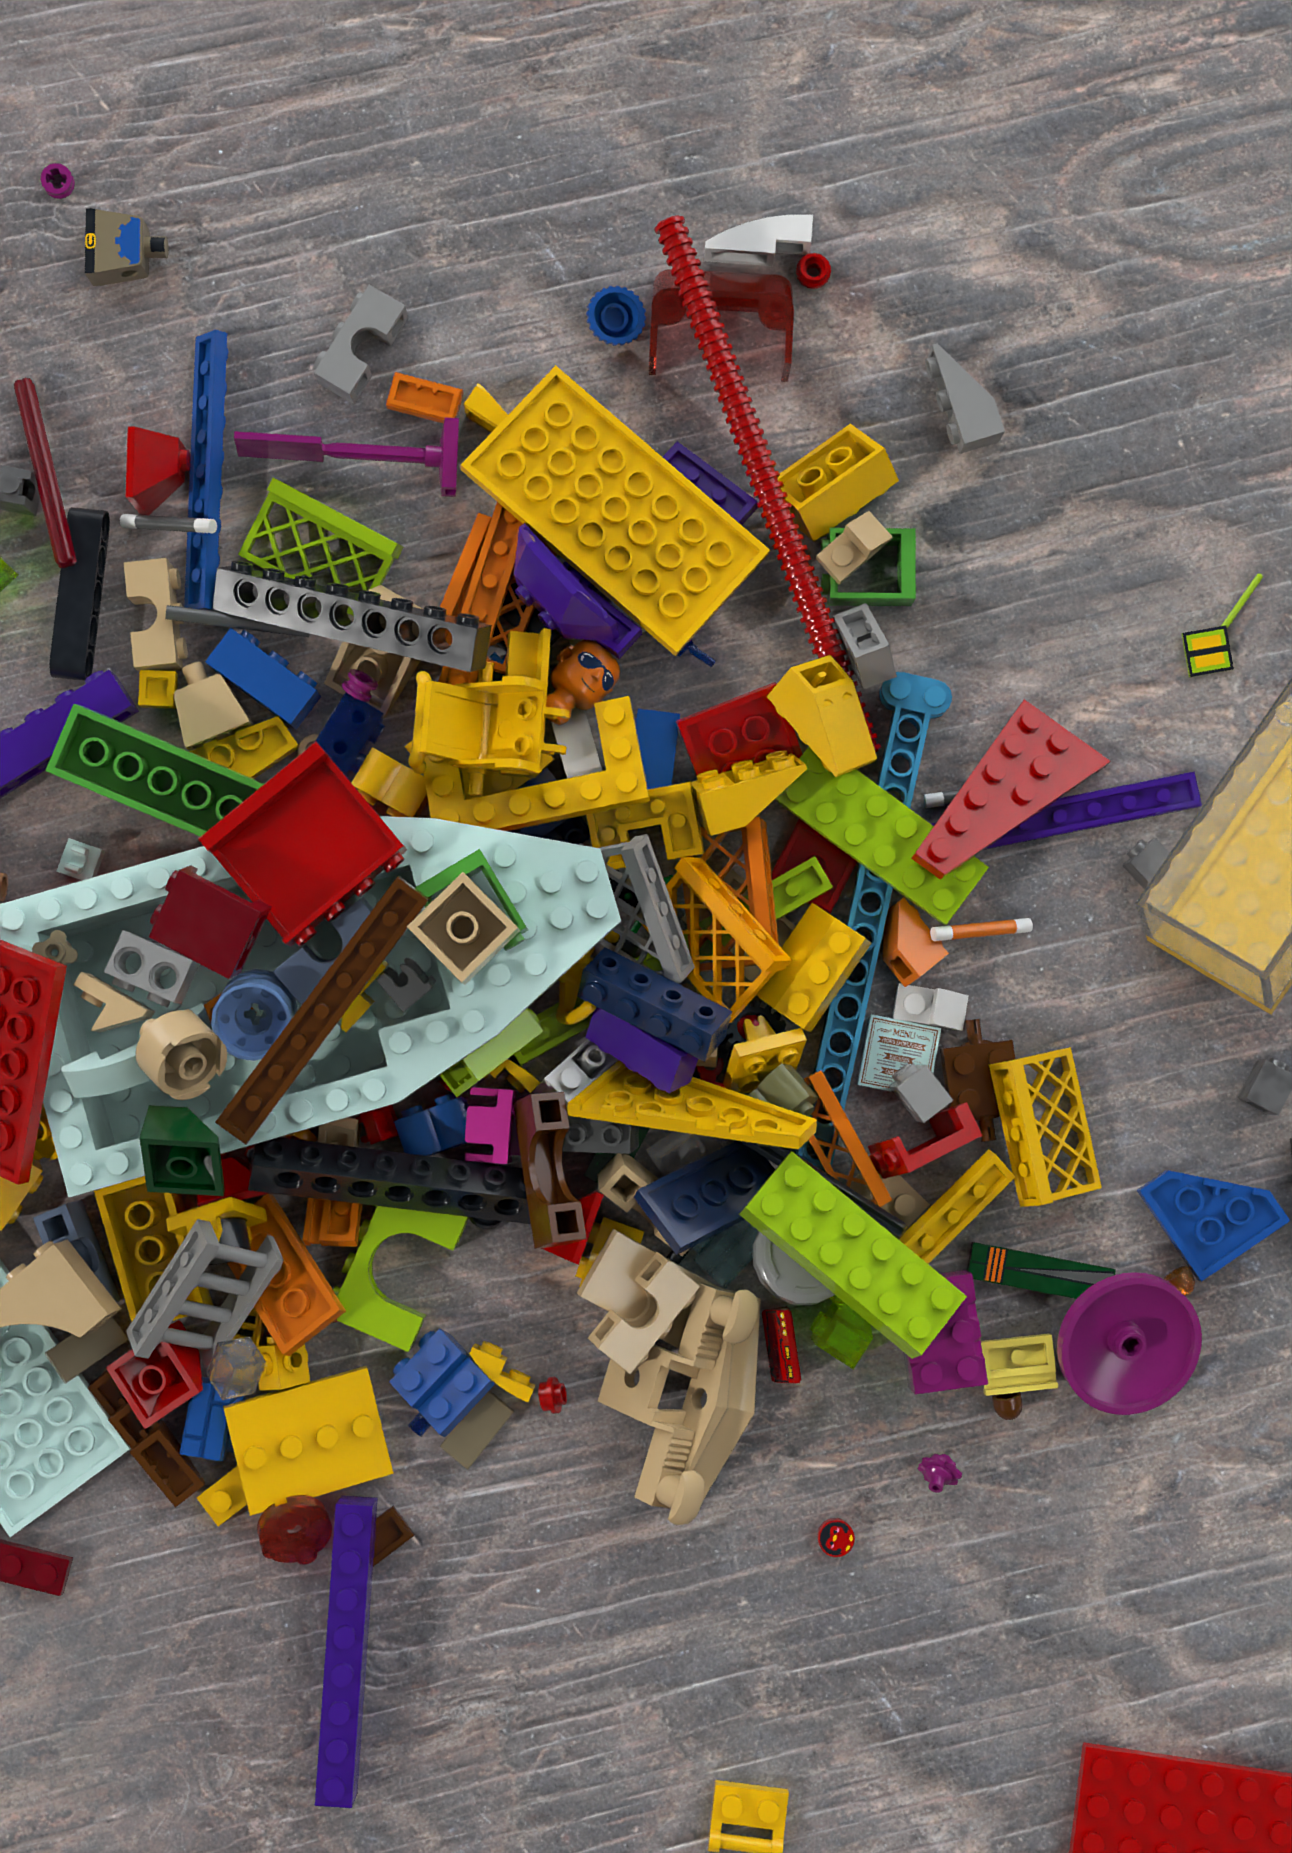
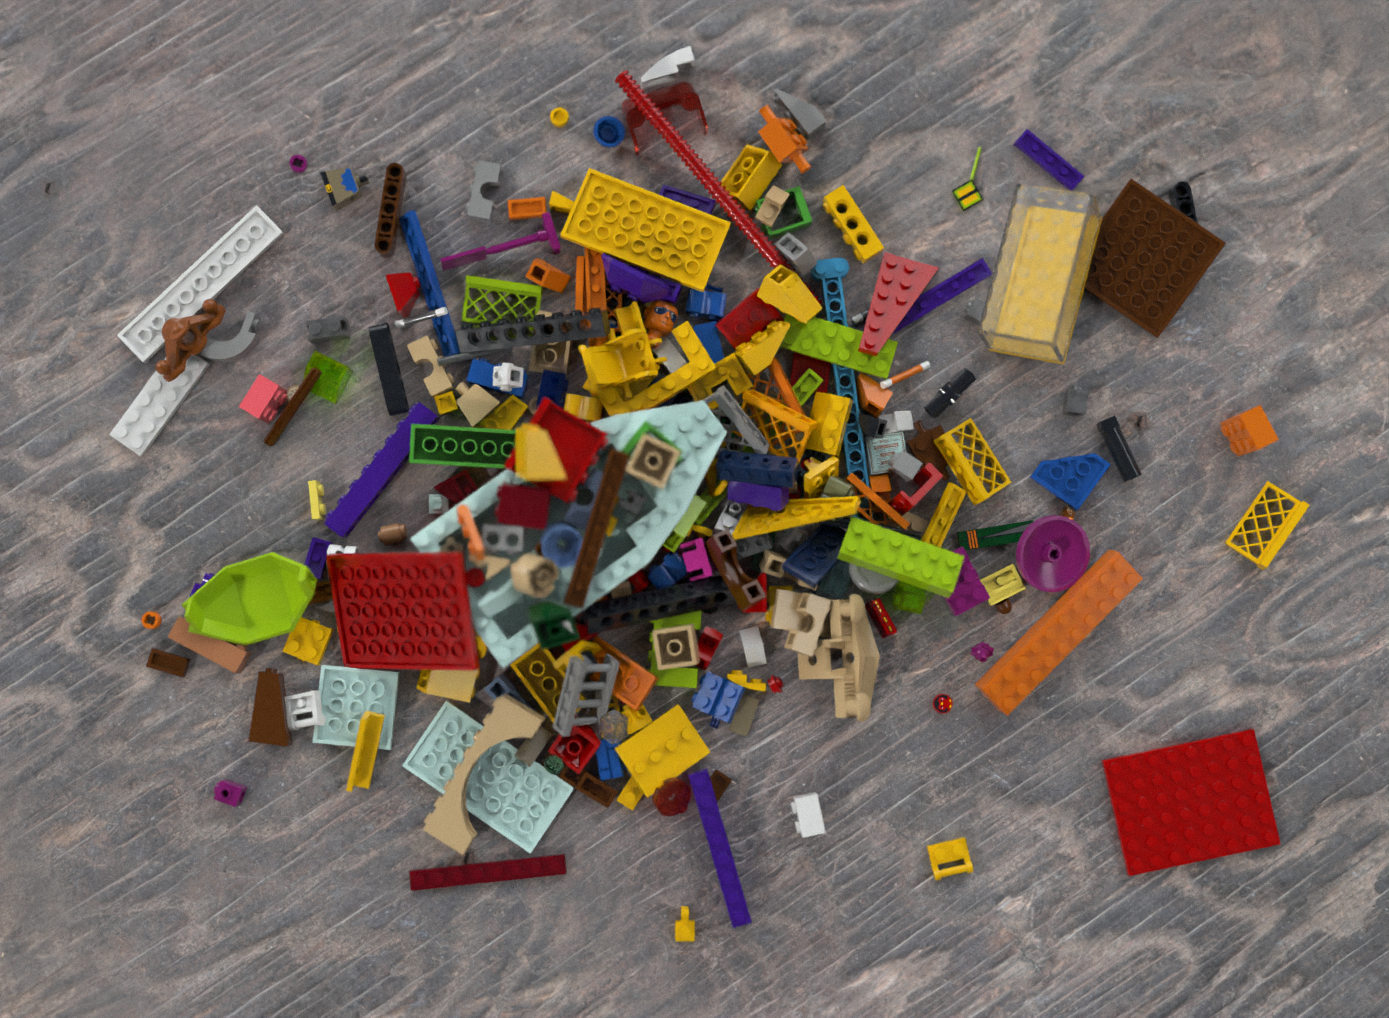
camera: 20 degrees left, 0 degrees up
(45, 473) = (349, 314): dark red axle -> none
(77, 1018) = (475, 577): none -> red plate
(94, 934) = (469, 531): none -> orange plate
(107, 1396) = (553, 764): none -> clear green tile
(121, 843) = (457, 487): none -> dark red wing
(185, 301) = (386, 202): none -> reddish brown beam
(234, 1768) = (684, 928): none -> yellow plate
(258, 842) = (536, 455): none -> yellow slope
(276, 681) = (508, 376): none -> white brick
(332, 1223) = (634, 637): orange plate -> none
(360, 685) = (549, 364): magenta bush -> none
(396, 1267) = (676, 646): none -> tan brick
(415, 529) = (547, 275): none -> orange slope
(451, 1286) = (707, 645): none -> red brick
(524, 1651) = (808, 814): none -> white brick
(536, 1313) = (753, 646): none -> white slope
(539, 260) = (559, 117): none -> yellow tile
(675, 679) = (706, 304): none -> blue brick
(816, 261) = (700, 68): red plate -> none
(866, 1114) = (881, 486): none -> orange slope
(890, 998) = (872, 425): none -> black brick
(917, 438) = (784, 139): none -> orange brick
(982, 576) = (842, 198): none -> yellow brick
(1049, 990) = (950, 393): none -> black piece
(1089, 1487) = (1058, 631): none -> orange brick

